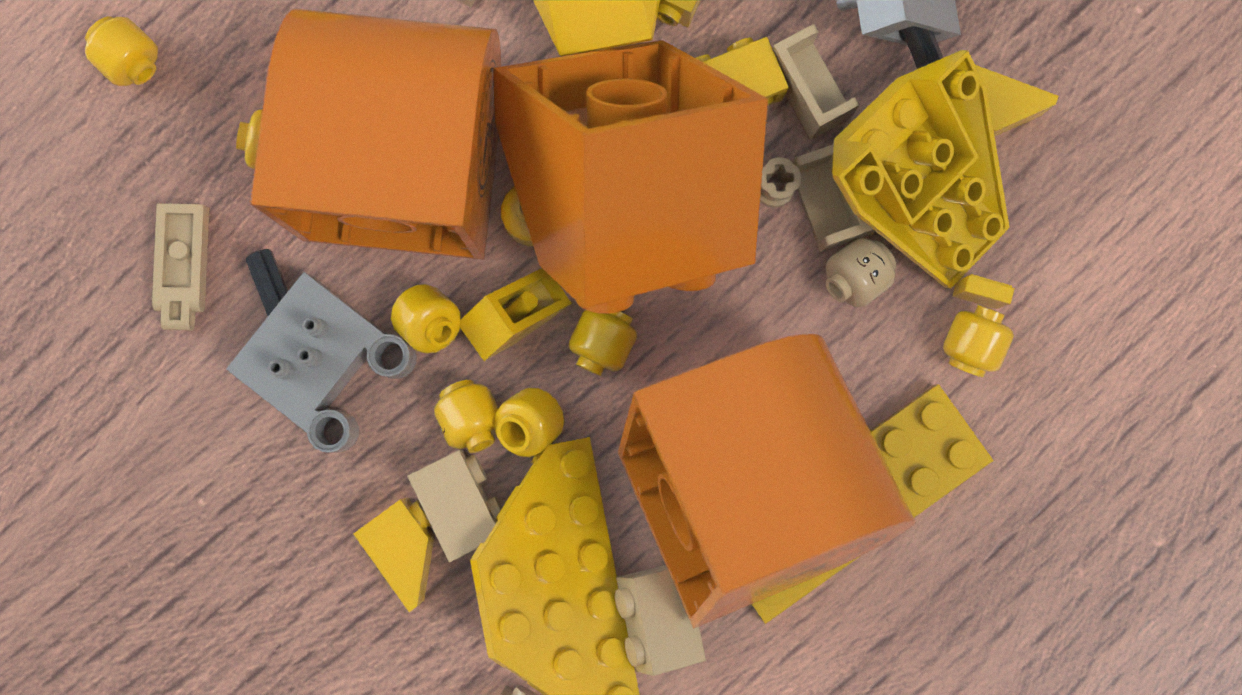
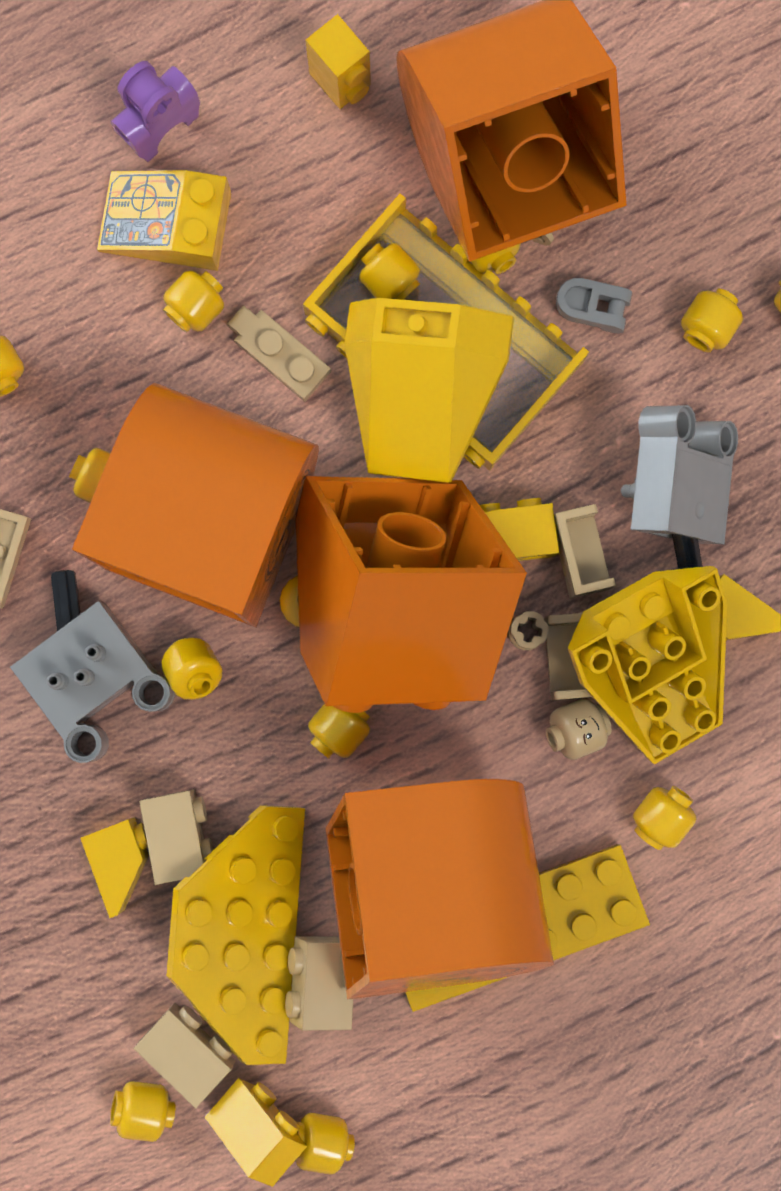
camera: 20 degrees right, 0 degrees up
(467, 416) = (205, 762): yellow head -> none
(513, 313) = (266, 684): yellow slope -> none
(529, 422) = (255, 782): yellow head -> none
(983, 291) = (682, 775): yellow tile -> none

